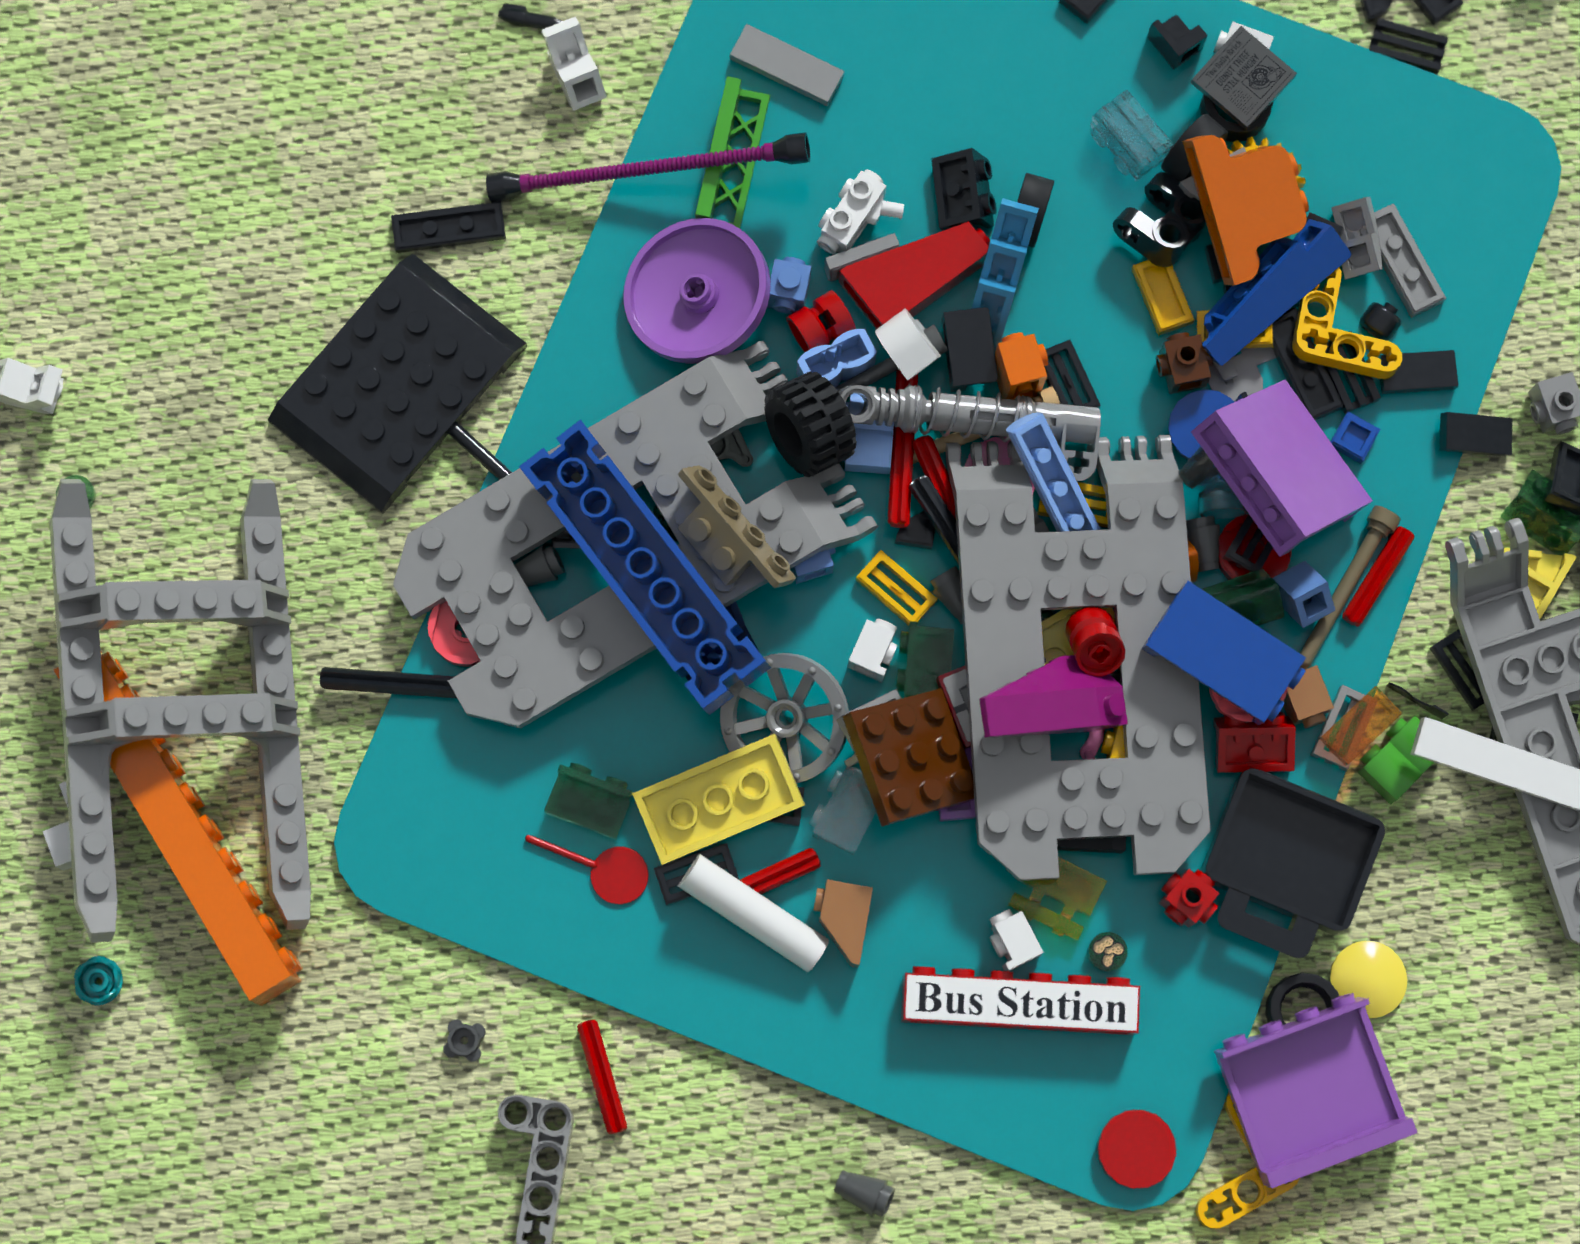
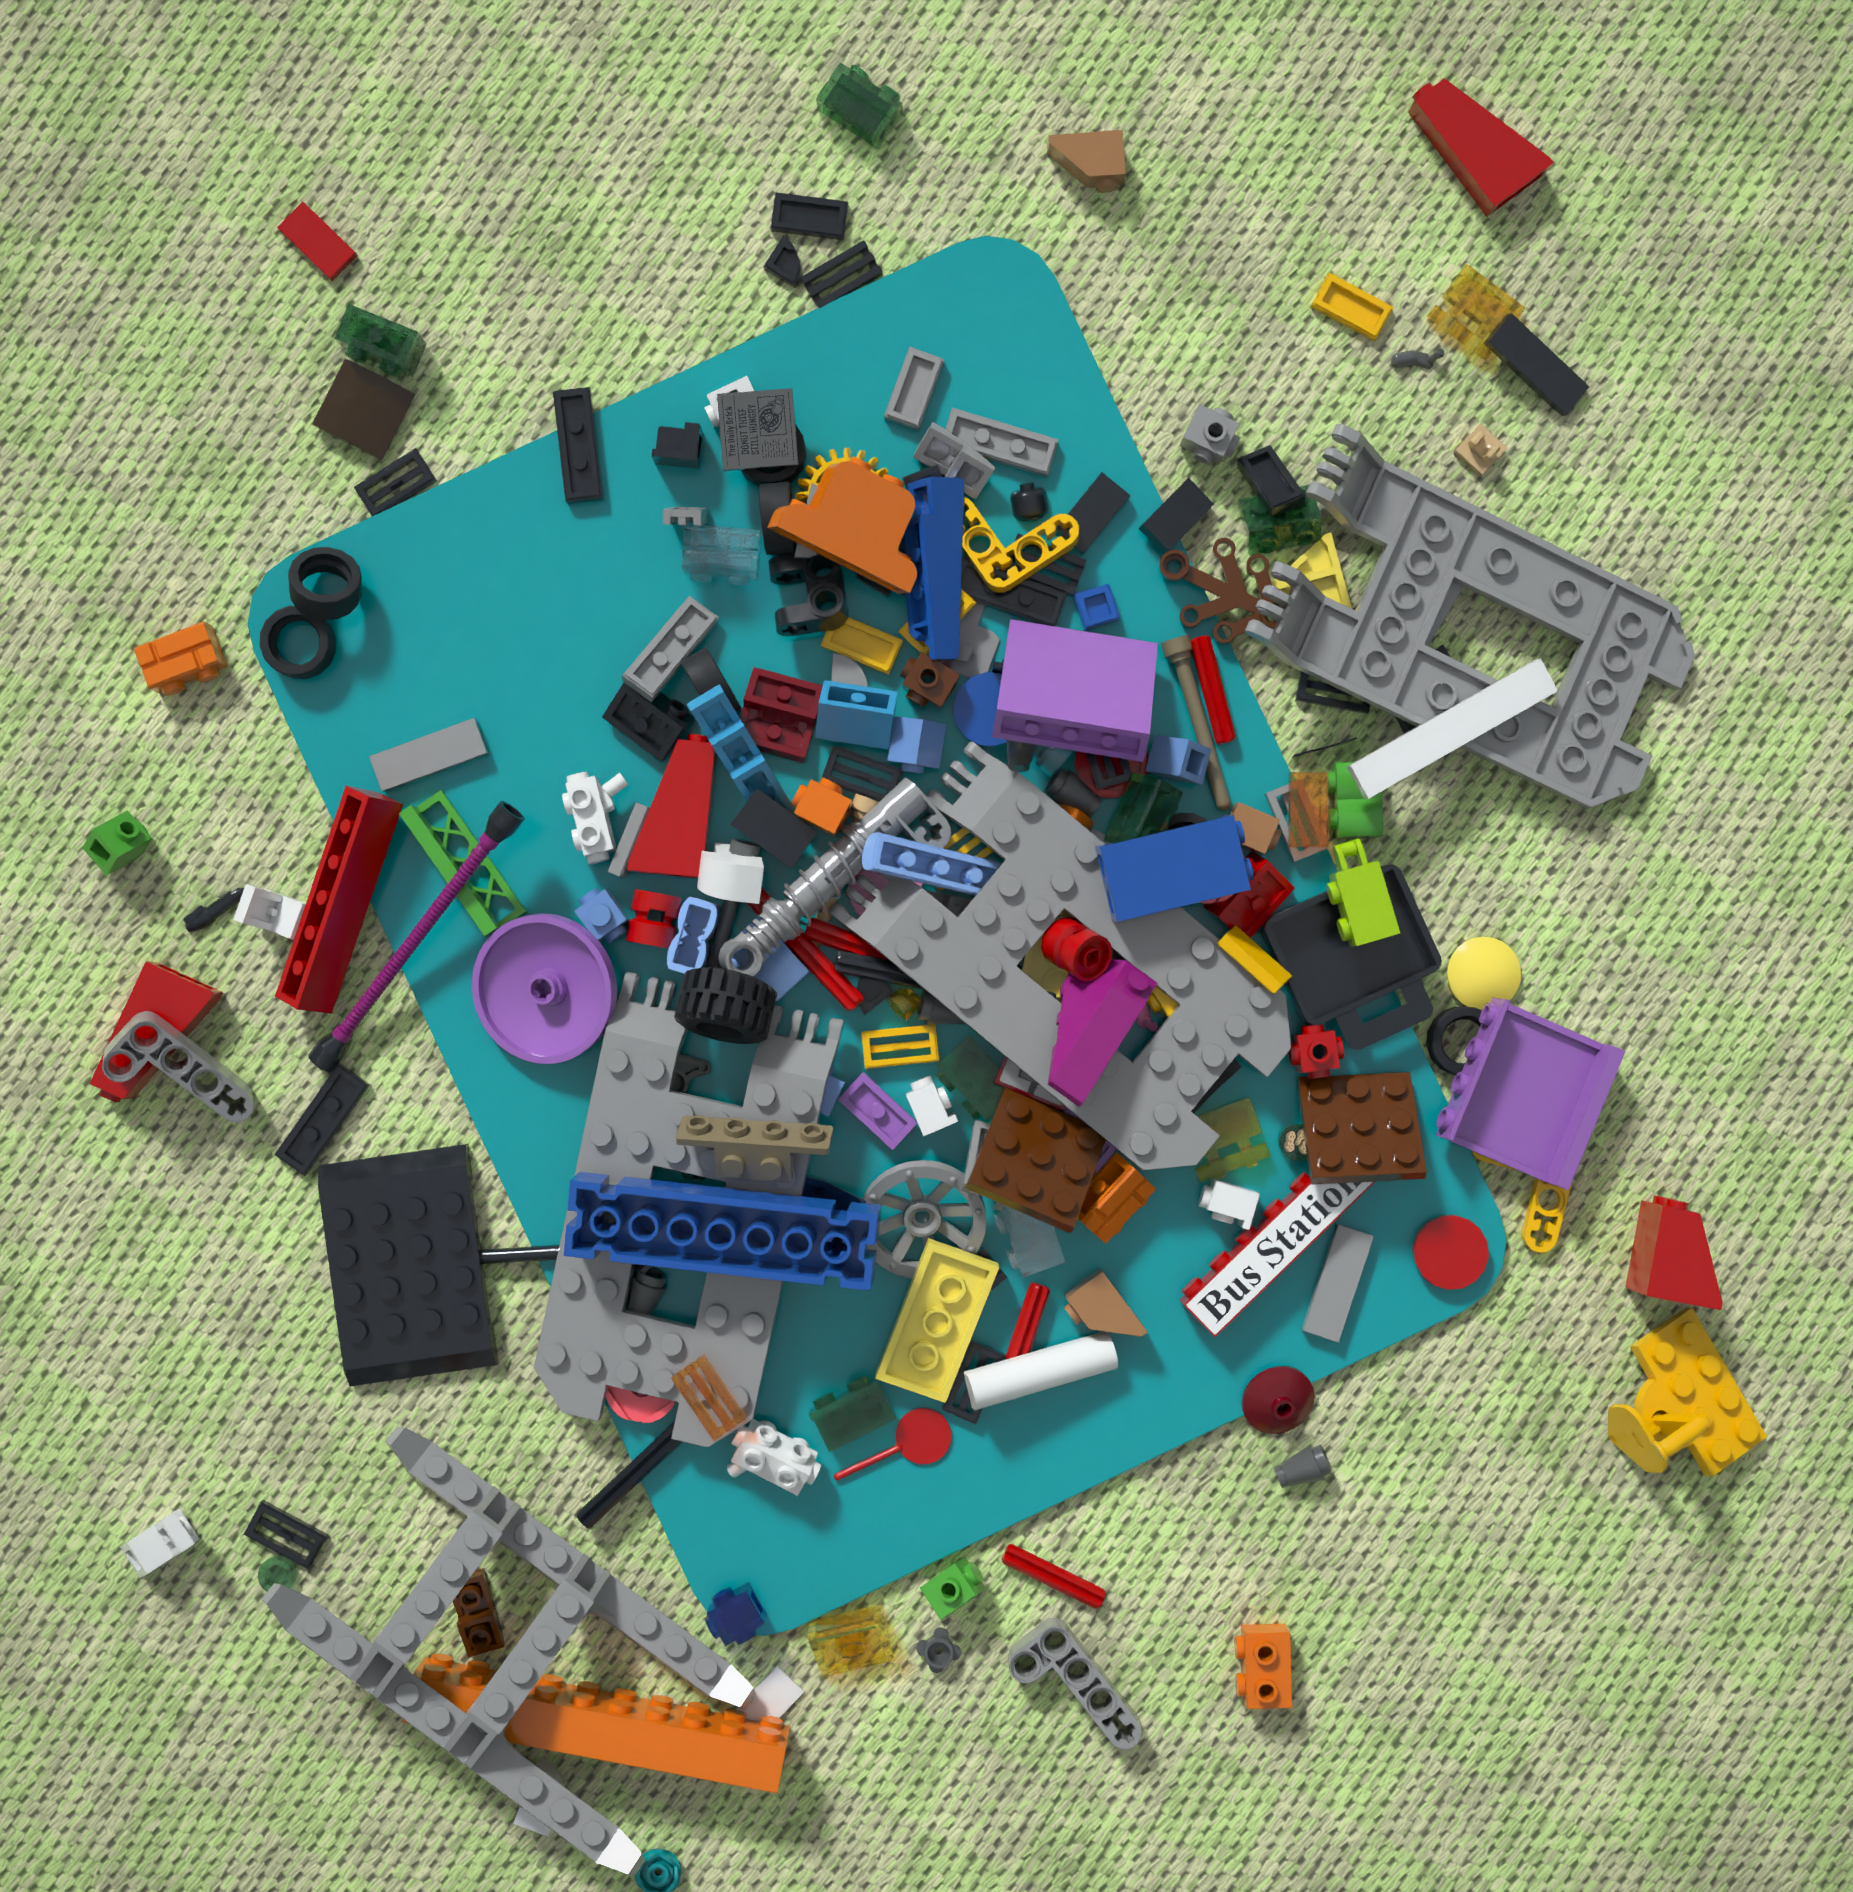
camera: 50 degrees left, 10 degrees up
(119, 503) = (292, 1521): none -> black tile
(179, 663) = (478, 1616): none -> reddish brown slope
(313, 945) = (773, 1696): none -> white tile
(354, 854) = (735, 1614): none -> clear blue brick
(396, 95) = (182, 1072): none -> light grey beam
(403, 49) = (171, 996): none -> red slope
(410, 966) = (850, 1640): none -> clear yellow slope
(500, 706) = (721, 1389): none -> clear orange tile
(502, 771) = (773, 1456): none -> white brick
(525, 1003) = (953, 1587): none -> bright green brick
(623, 92) = (338, 900): none -> red brick
(833, 614) = (877, 1110): none -> medium lavender plate
(901, 1106) = (1270, 1390): none -> dark red dish
(931, 561) = (904, 1002): none -> clear yellow hinge
(934, 846) = (1114, 1197): none -> orange brick
(1015, 158) = (669, 647): none -> light grey tile
(1031, 1083) = (1337, 1282): none -> light grey tile
(1057, 282) = (780, 713): none -> dark red slope
(1108, 332) = (856, 714): none -> dark azure brick
(1129, 305) = (847, 671): none -> light grey tile
(1130, 394) = (916, 744): none -> medium blue brick
(1134, 82) = (685, 515): none -> light grey tile
(1165, 984) = (1361, 1128): none -> reddish brown plate
(1213, 782) = (1254, 959): none -> yellow tile
(1336, 818) = (1360, 897): none -> lime brick
(1379, 165) = (914, 388): none -> light grey tile
(1458, 523) = (1231, 595): none -> reddish brown plant

